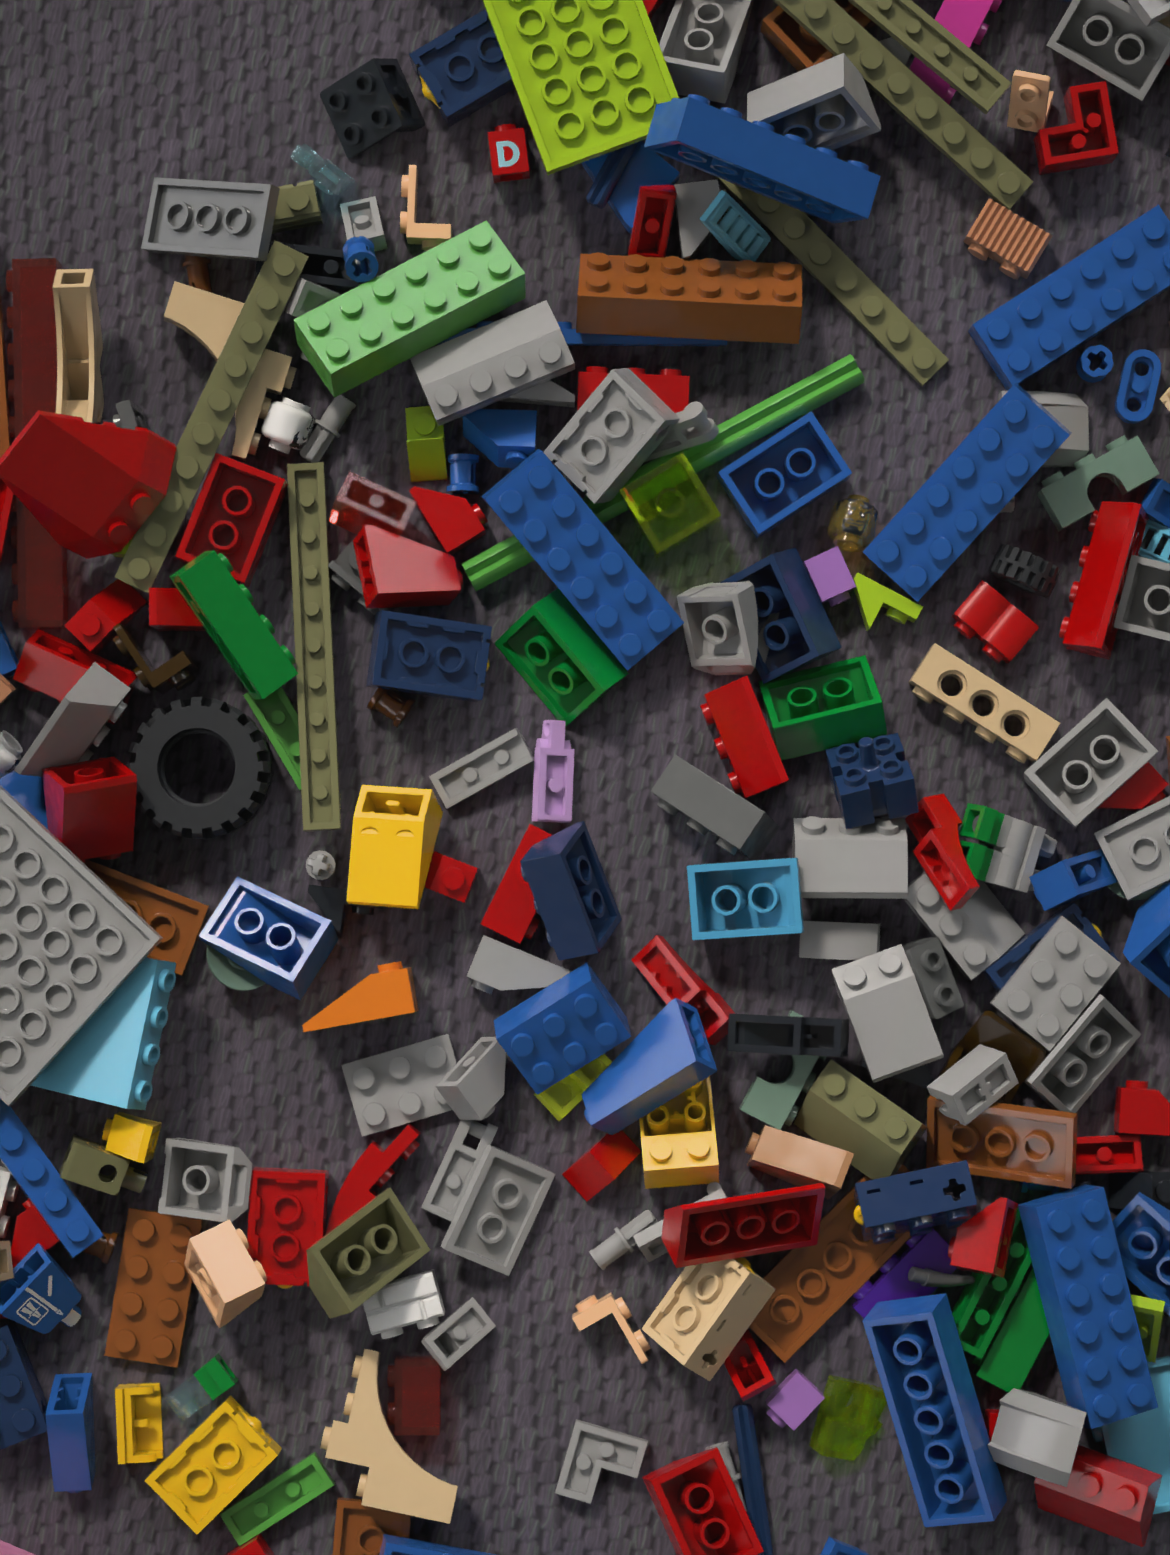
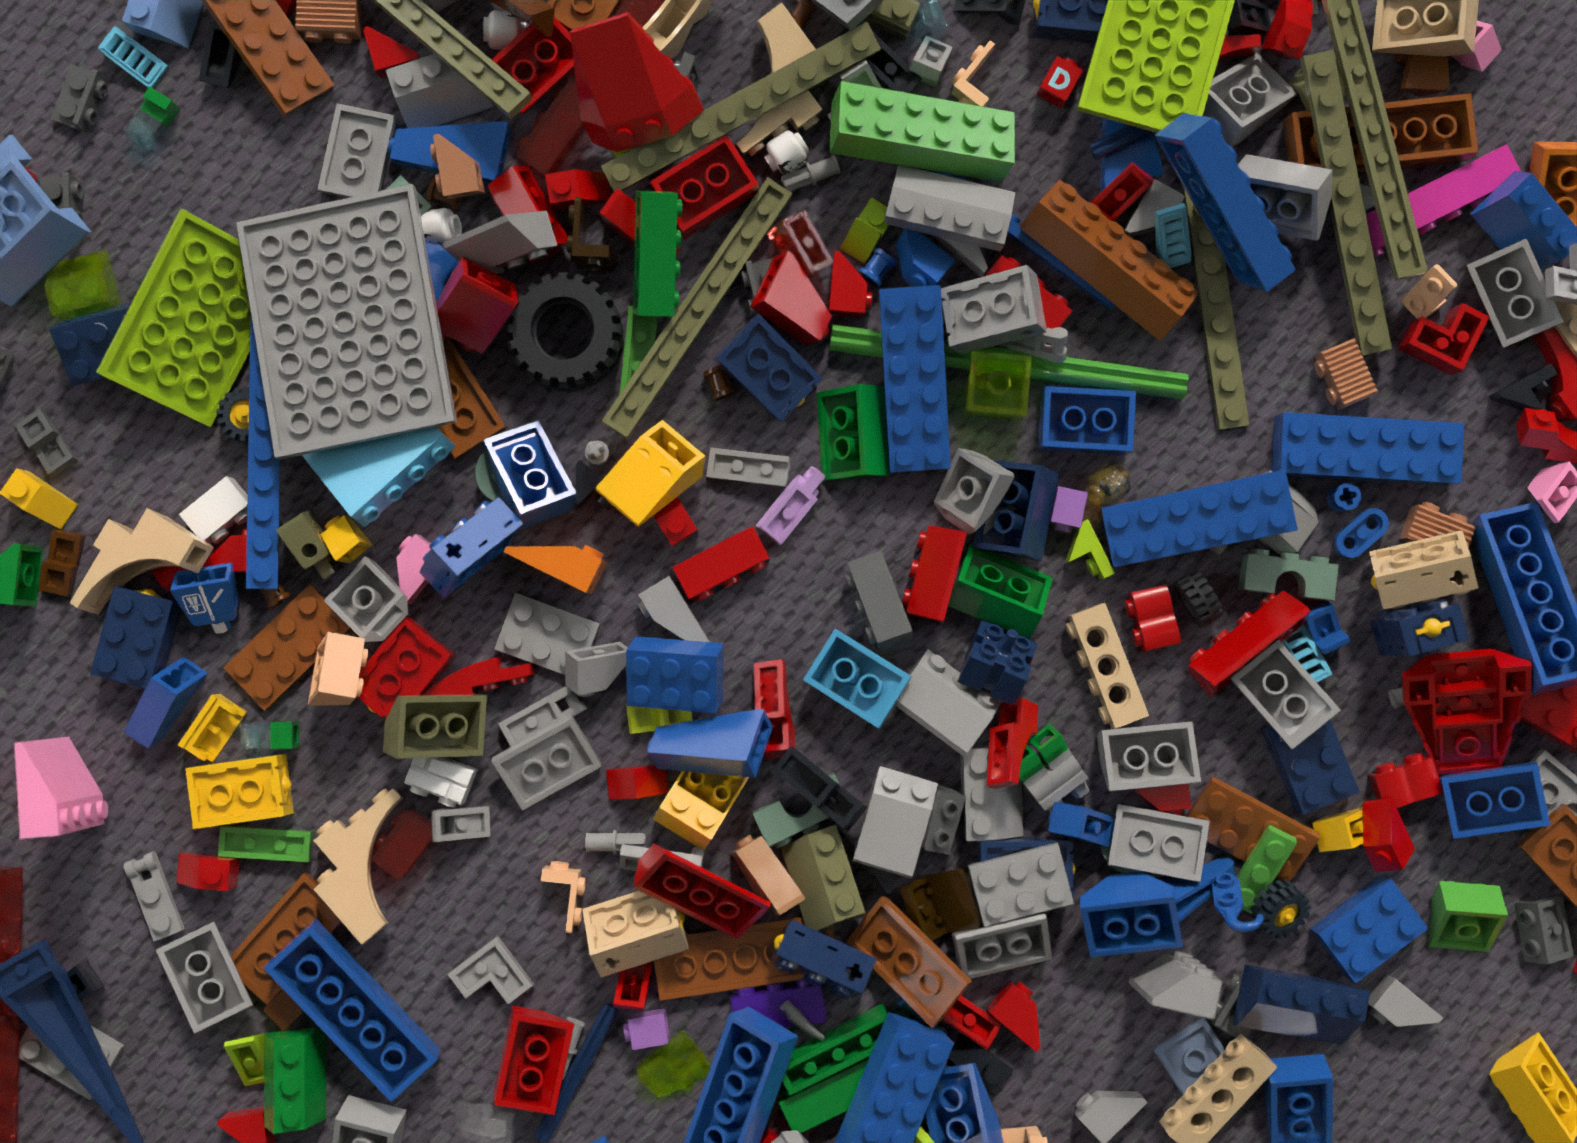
camera: 30 degrees right, 0 degrees up
(223, 1108) = (409, 564): none -> bright pink slope
(264, 1051) = (470, 546): none -> piece
(358, 249) = (909, 83): blue bush -> none
(571, 892) = (746, 590): dark blue slope -> none
(839, 940) = (898, 750): light grey slope -> none
(973, 1083) = (918, 910): light grey hinge -> none
(985, 1239) = (849, 1019): red slope -> none

